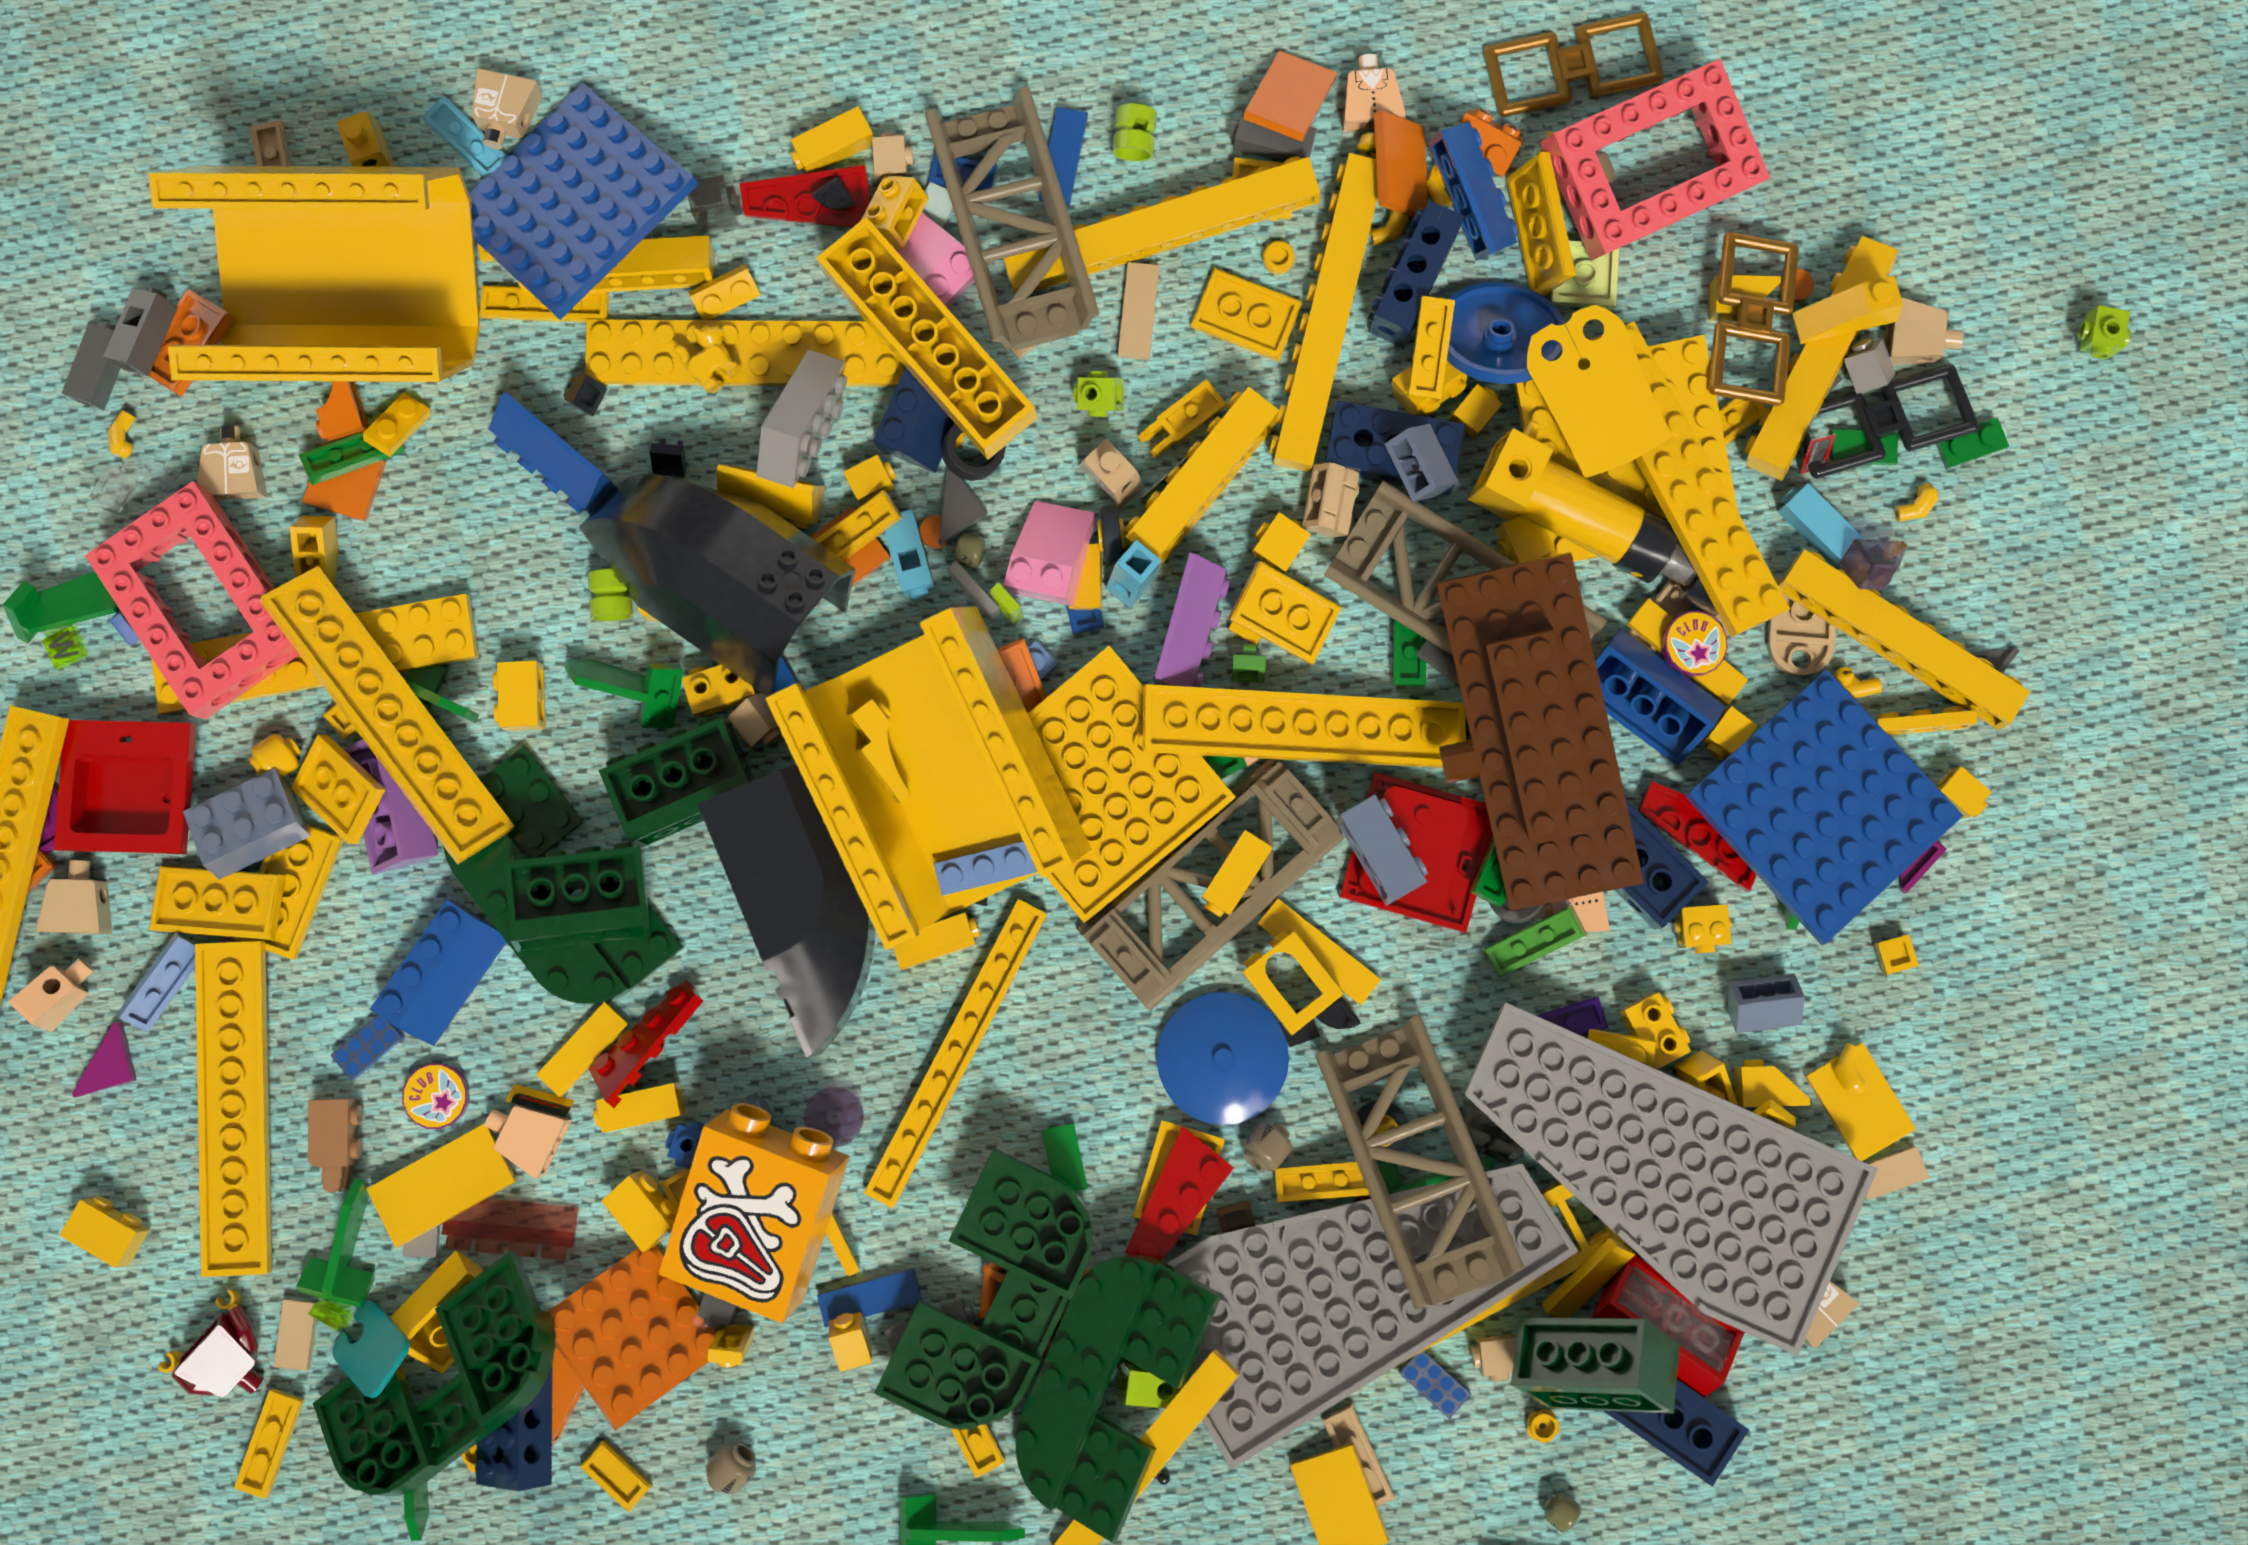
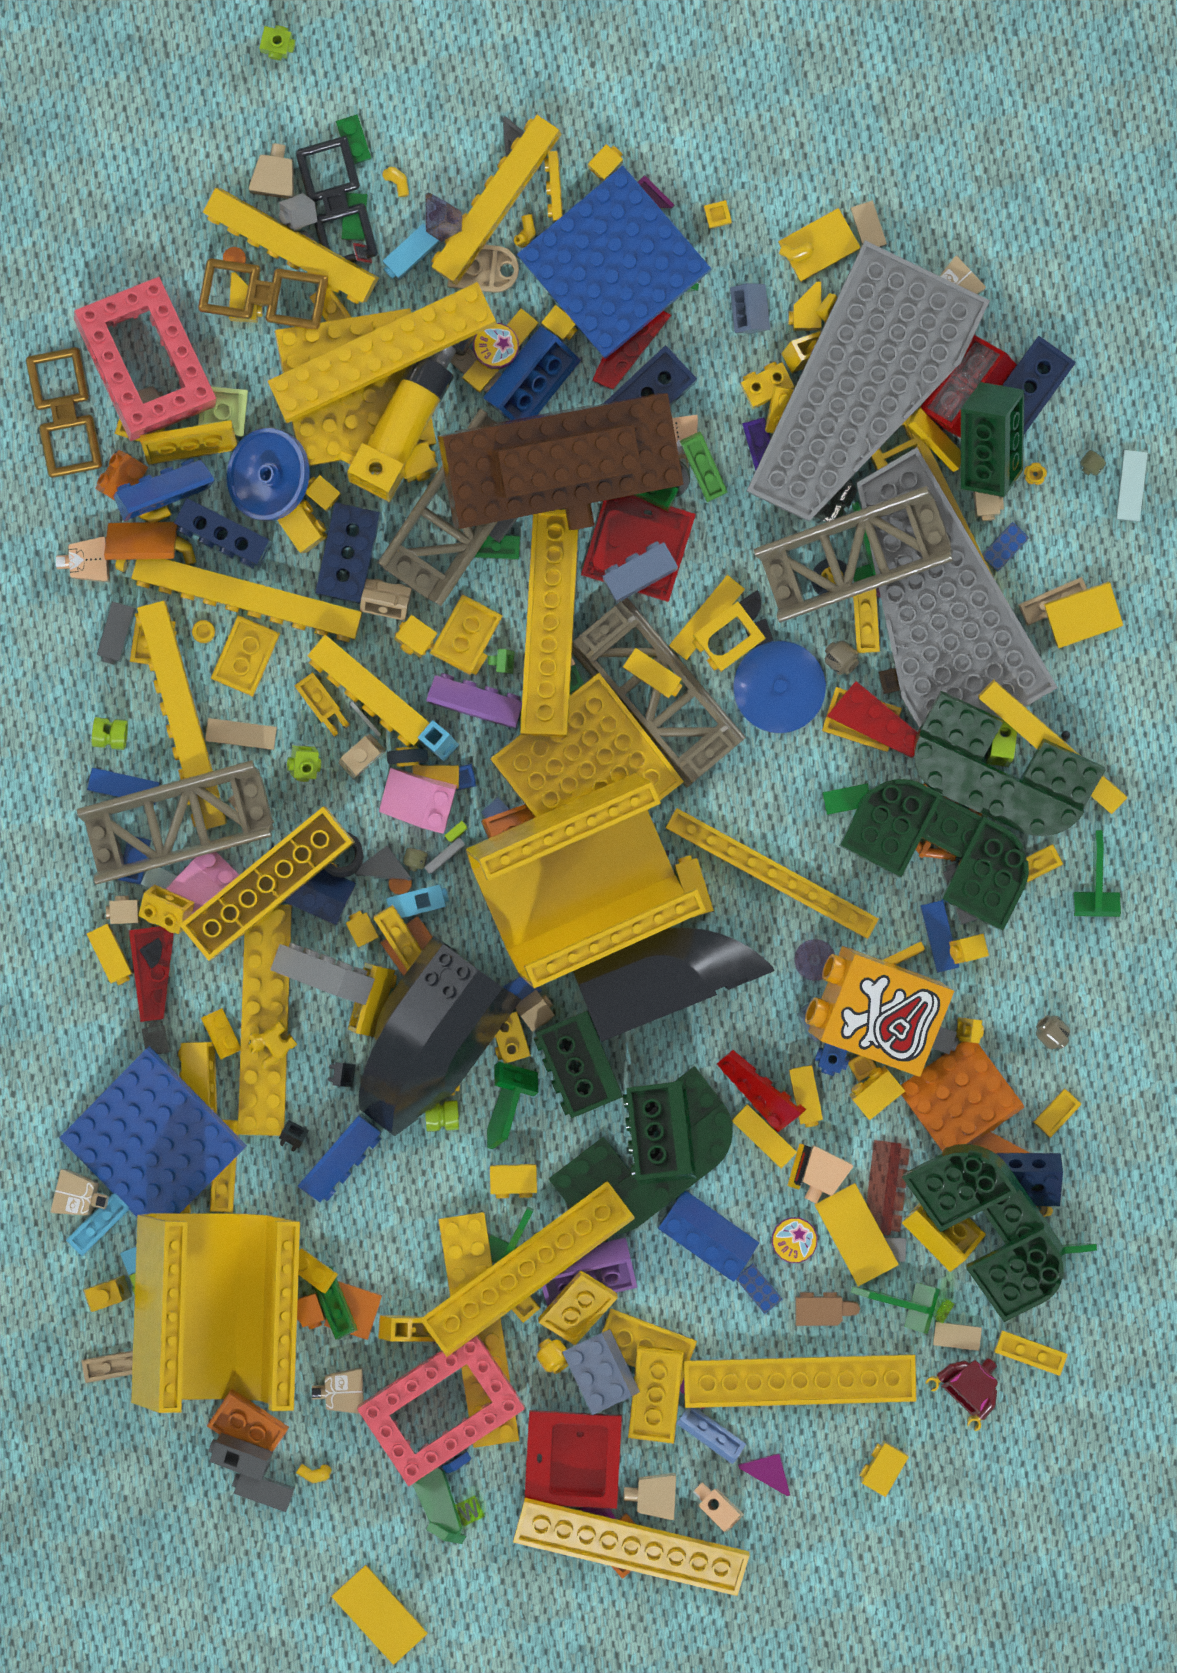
camera: 90 degrees left, 5 degrees up
(120, 482) = (348, 1472): clear tile -> none
(377, 1352) = (970, 1274): teal piece -> none
(872, 724) = (542, 925): yellow slope -> none
(984, 868) = (644, 849): medium blue plate -> none
(1290, 96) = (86, 619): orange tile -> none
(1421, 462) = (366, 535): sand blue brick -> none
(1431, 347) = (282, 525): yellow plate -> none
(1600, 410) = (332, 408): yellow piece -> none
(1703, 927) = (696, 348): yellow head -> none
(1849, 311) = (262, 227): yellow slope -> none

